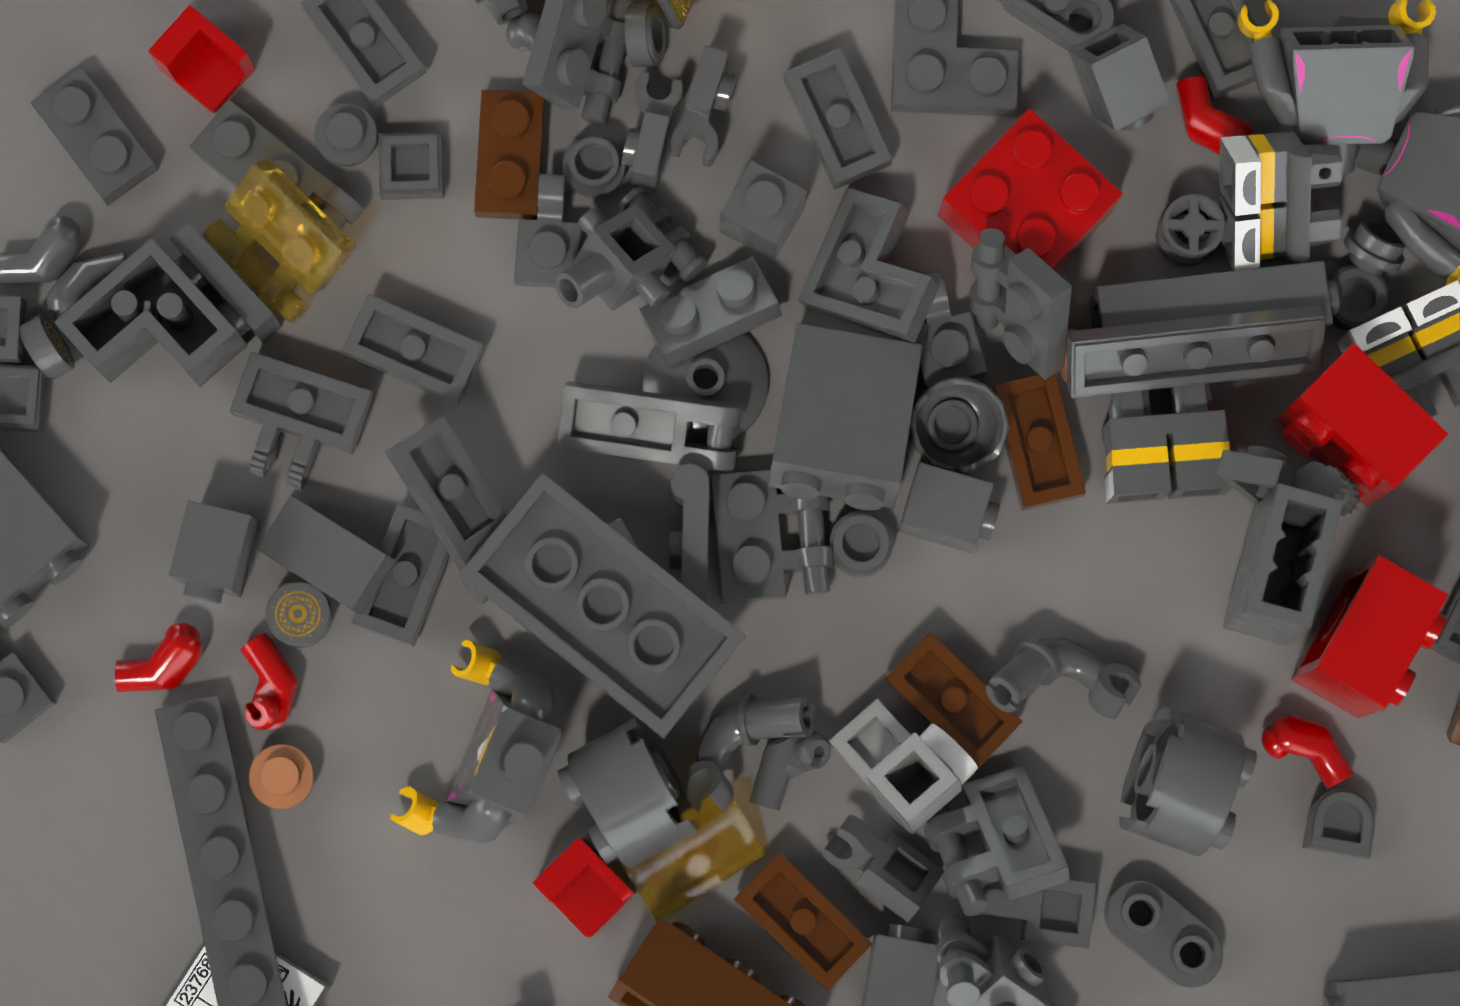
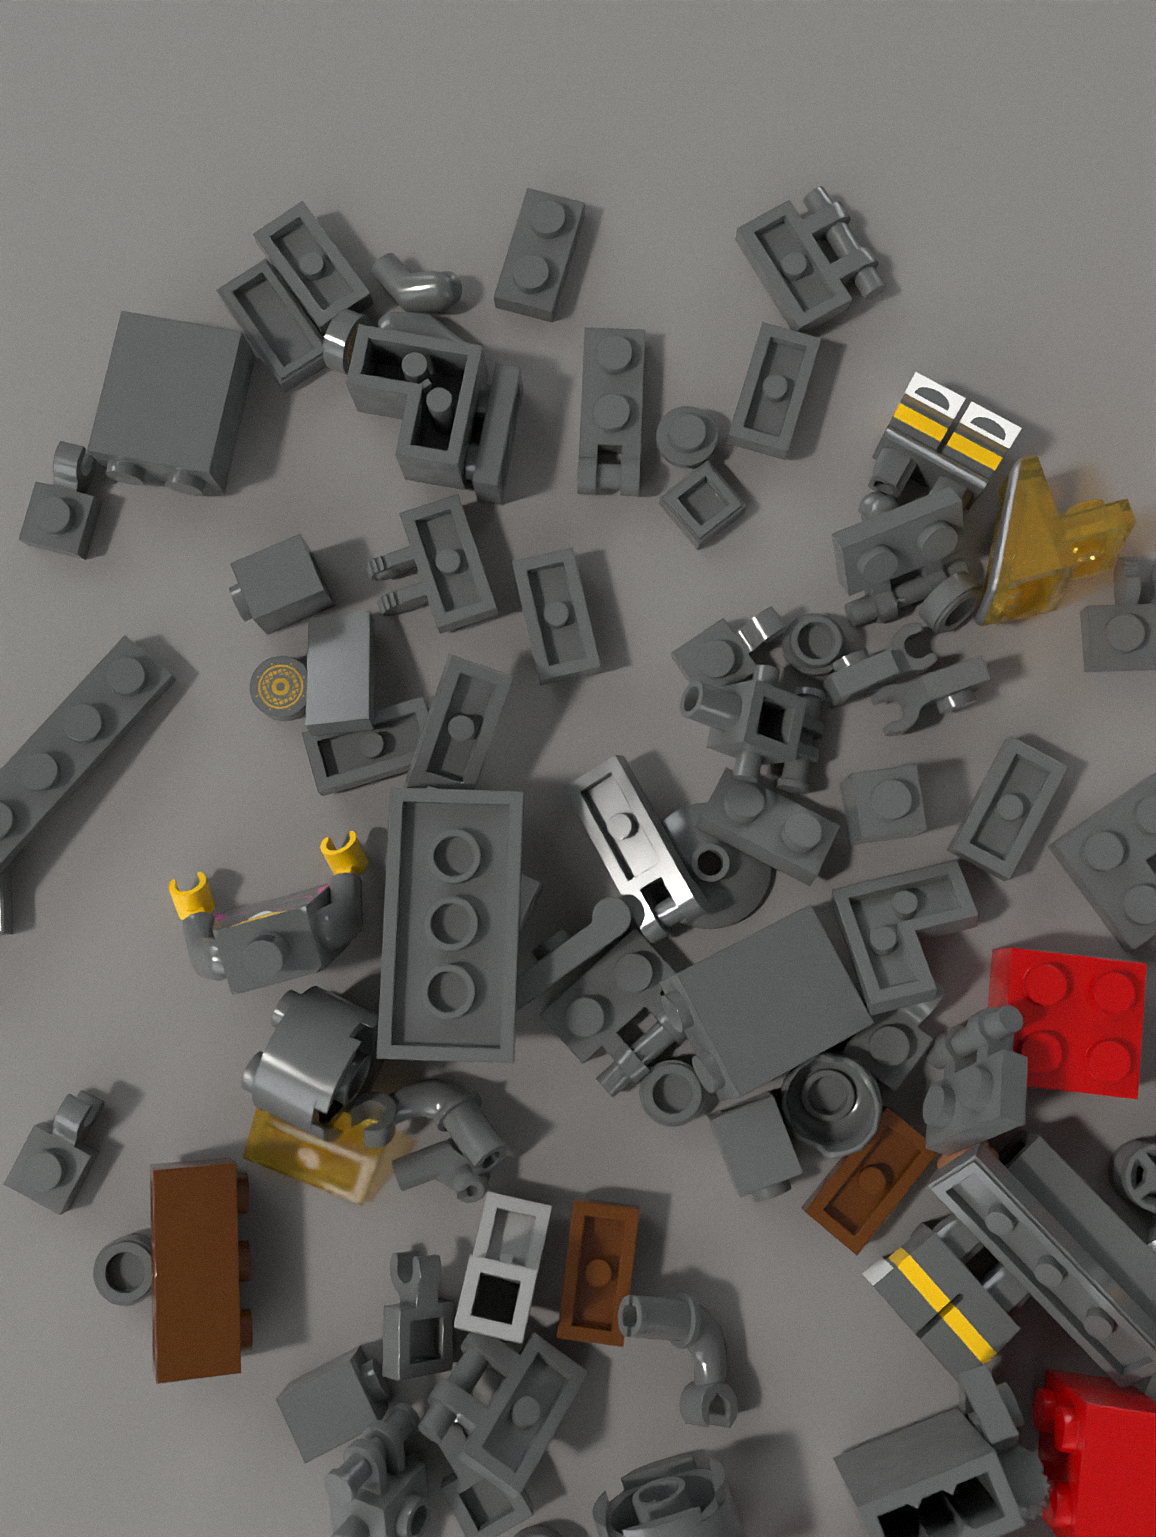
camera: 65 degrees right, 0 degrees up
(167, 665) = (168, 618): red arm -> none
(201, 60) = (659, 283): red panel -> none
(275, 685) = (211, 714): red arm -> none
(281, 776) = (144, 771): nougat plate -> none
(290, 229) = (575, 452): clear yellow plate -> none
(509, 154) = (771, 571): reddish brown plate -> none
(583, 888) = (219, 1077): red panel -> none
(803, 921) = (323, 1282): reddish brown plate -> none
(949, 752) = (547, 1300): white tile -> none

